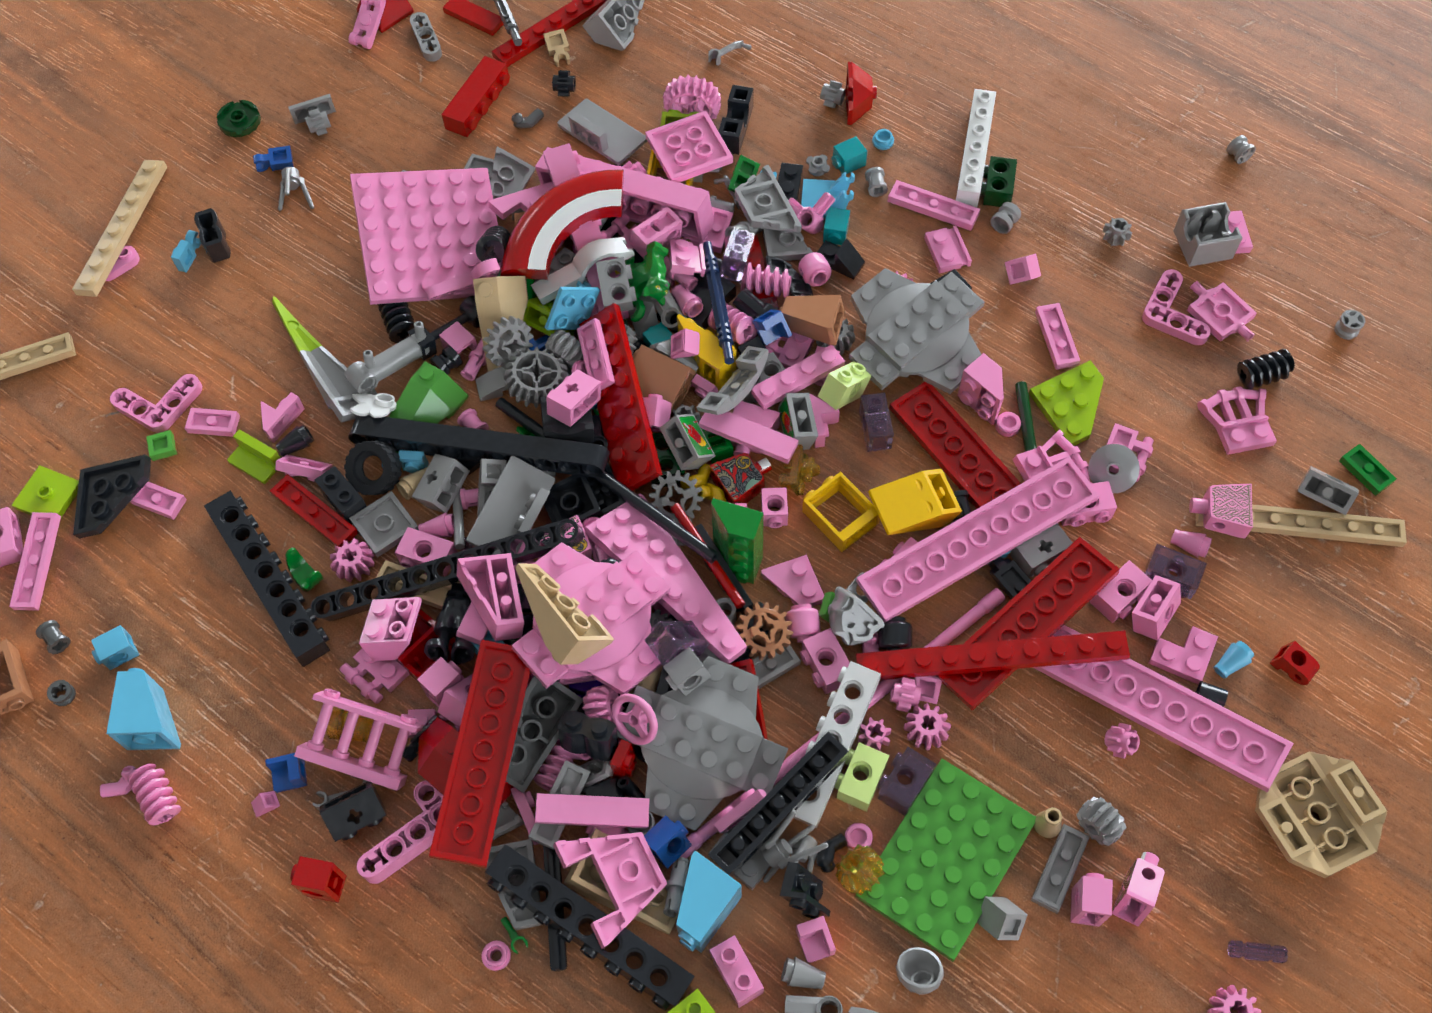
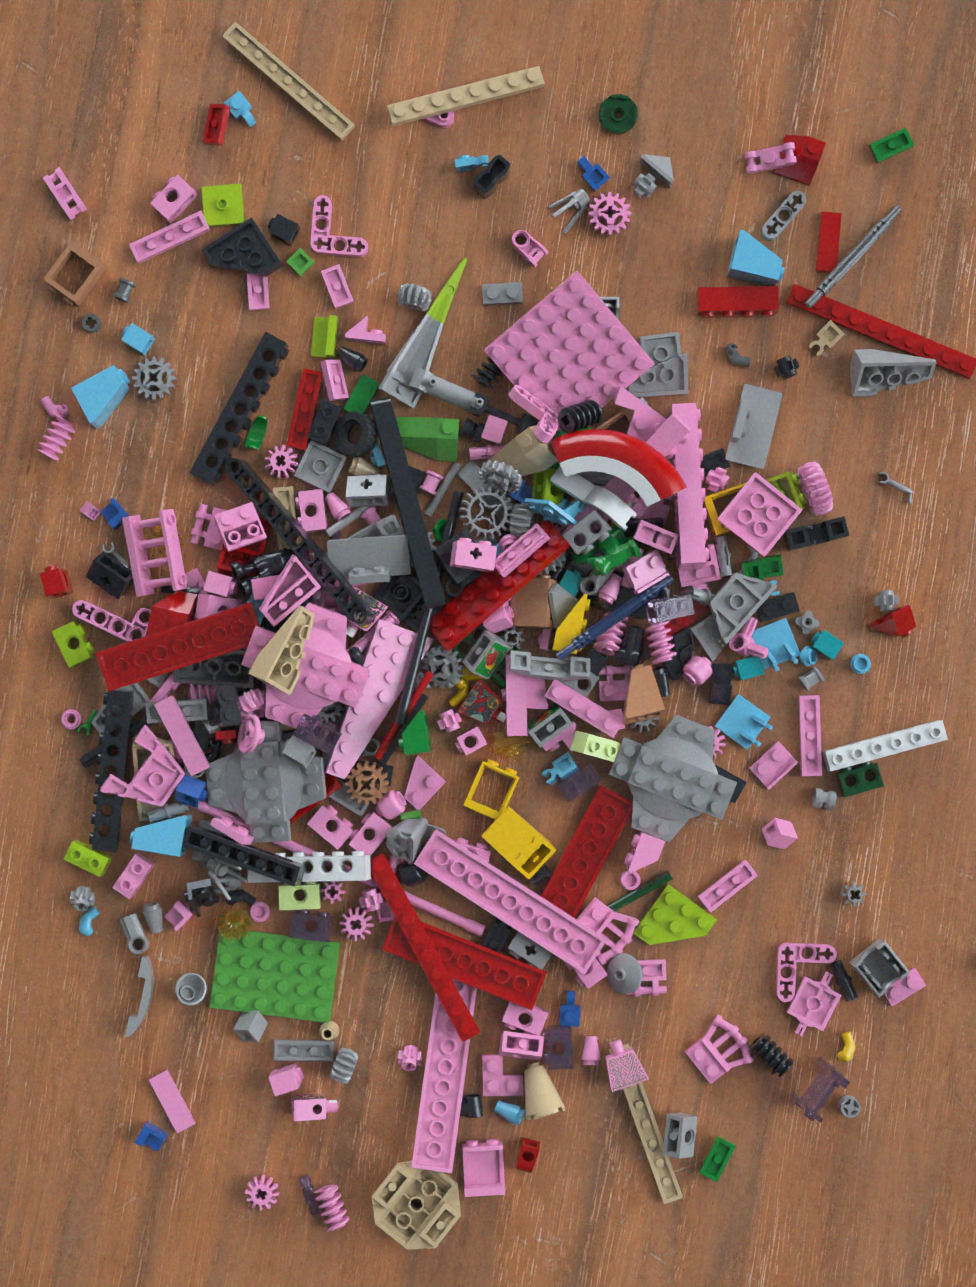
camera: 65 degrees right, 25 degrees up
(116, 444) = (283, 229): none -> black brick
(175, 657) = (149, 384): none -> light grey gear
(274, 351) = (414, 297): none -> light grey gear
(300, 238) = (529, 249): none -> bright pink piece
(322, 160) = (601, 214): none -> bright pink gear
(330, 281) = (502, 293): none -> light grey plate
(336, 448) = (362, 395): none -> green tile
(373, 405) = (401, 402): white plate -> none
(420, 910) = (65, 635): none -> lime brick
(447, 63) = (754, 262): none -> medium azure slope
(482, 411) = (442, 489): none -> light grey bar
(684, 344) = (561, 613): bright pink slope -> none
(771, 326) = (618, 665): blue panel -> none
(785, 712) = (319, 824): none -> bright pink brick
(851, 432) = (563, 768): none -> medium azure plate
(858, 174) = (808, 656): none -> medium azure plate
(892, 251) = (743, 722): none -> medium azure plate
(1136, 546) = (570, 1012): none -> blue plate
(1207, 277) = (844, 980): none -> black pin
(1224, 612) = (540, 1093): none -> tan cone
(1282, 300) = (849, 1048): none -> yellow arm
(1286, 924) = (332, 1206): none -> bright pink piece
(1297, 719) = (483, 1168): none -> bright pink panel
(1307, 315) = (820, 1089): none -> fence

